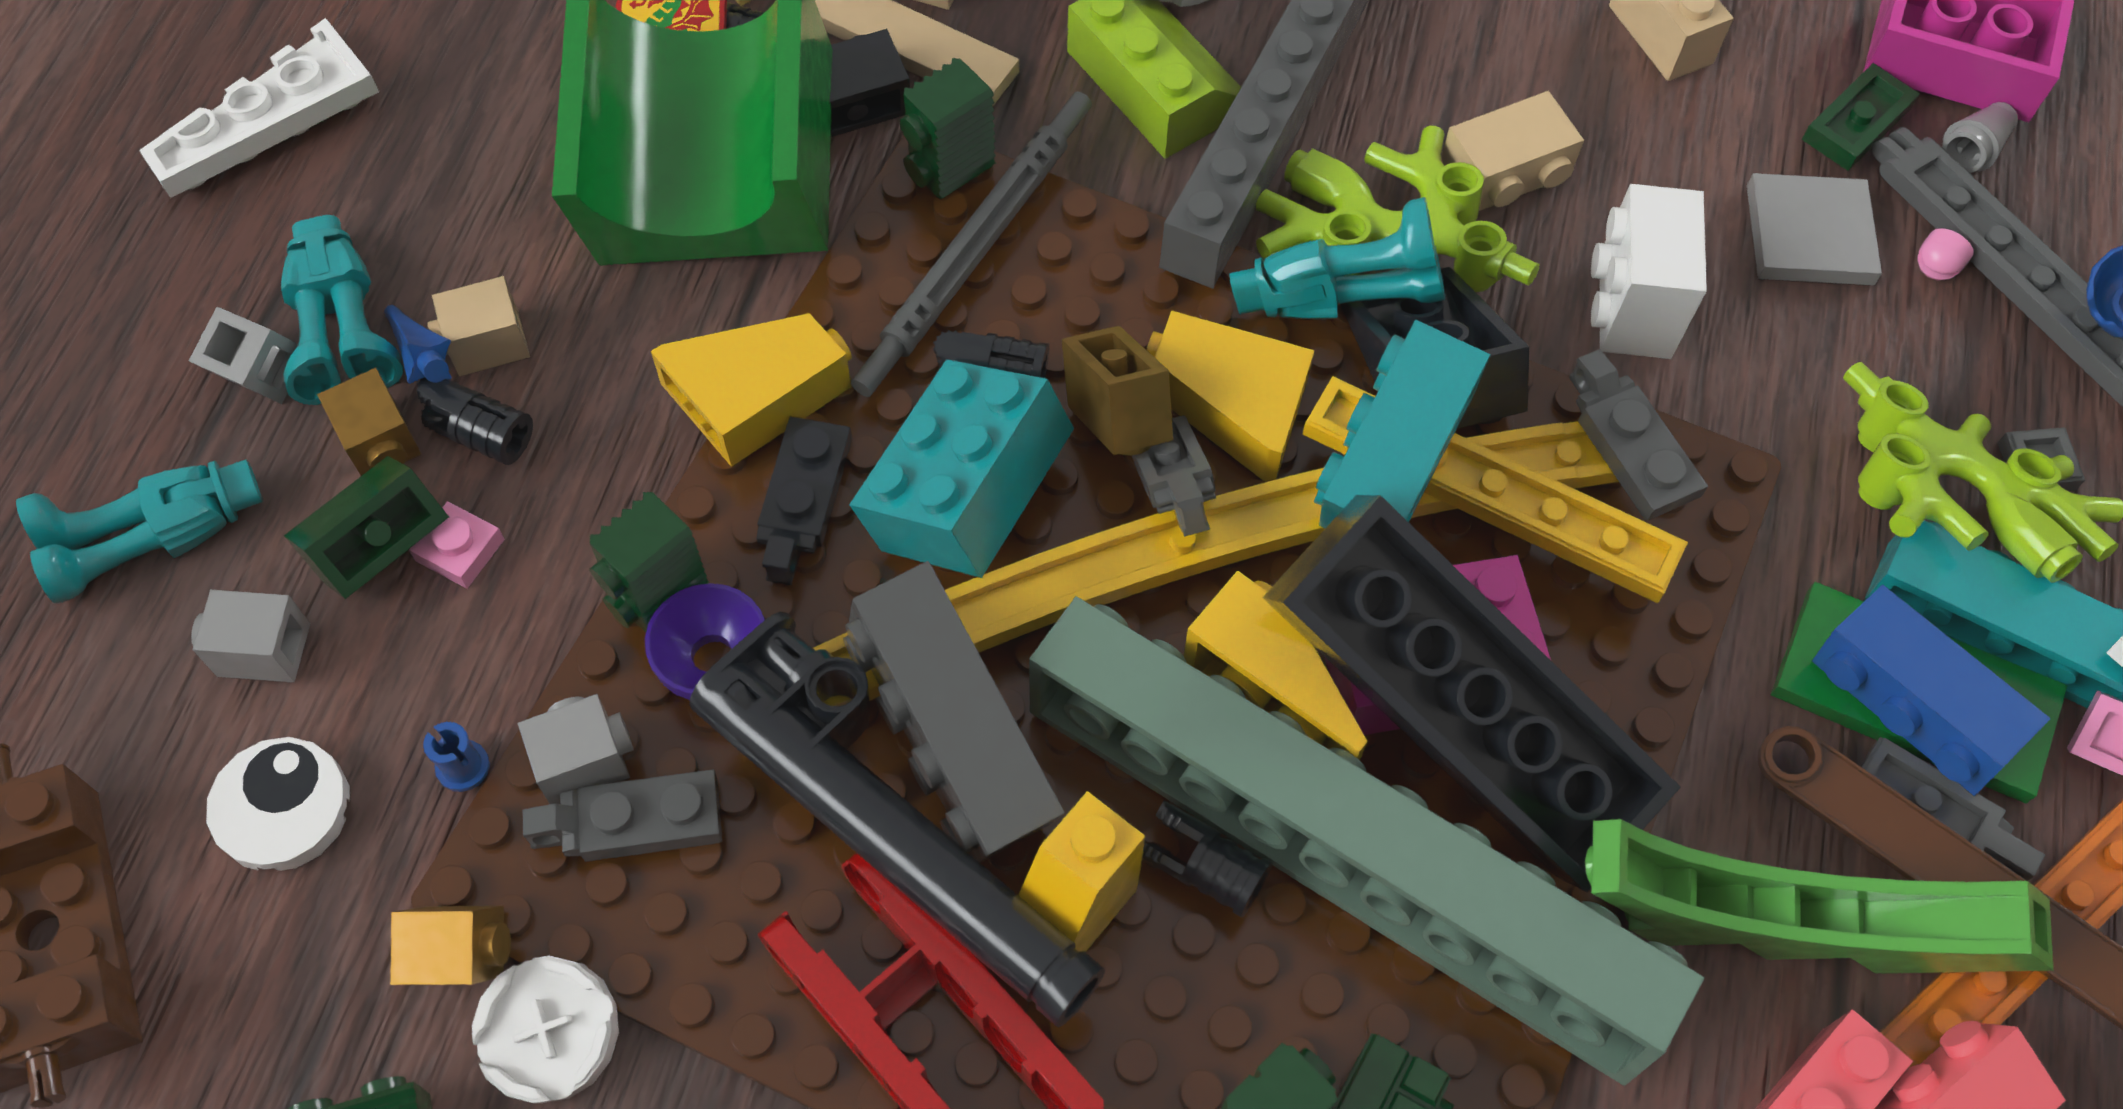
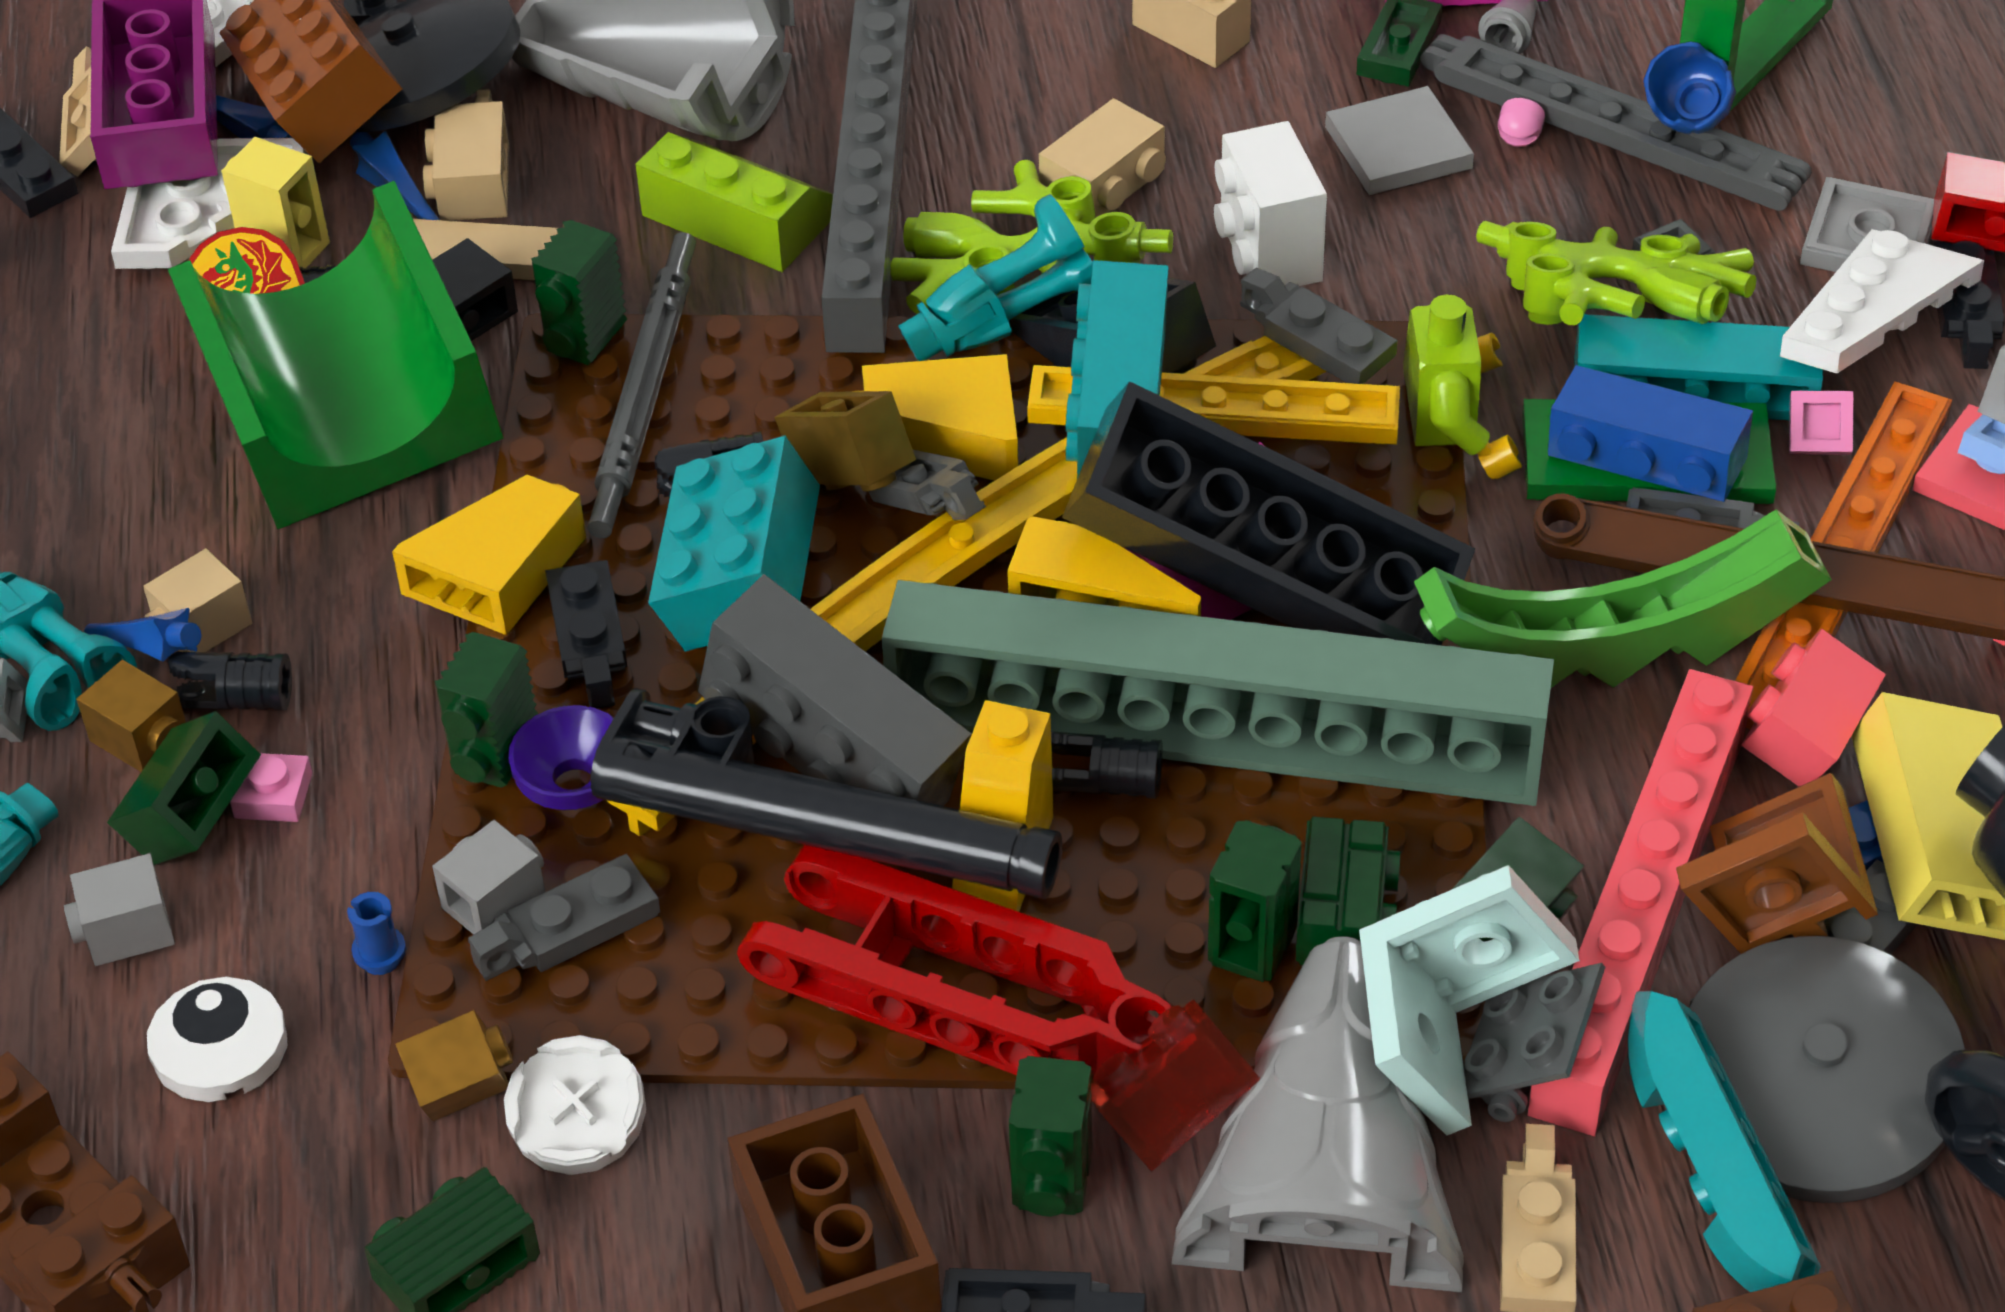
camera: 20 degrees left, 15 degrees down
(1740, 547) = (1443, 382): none -> lime torso

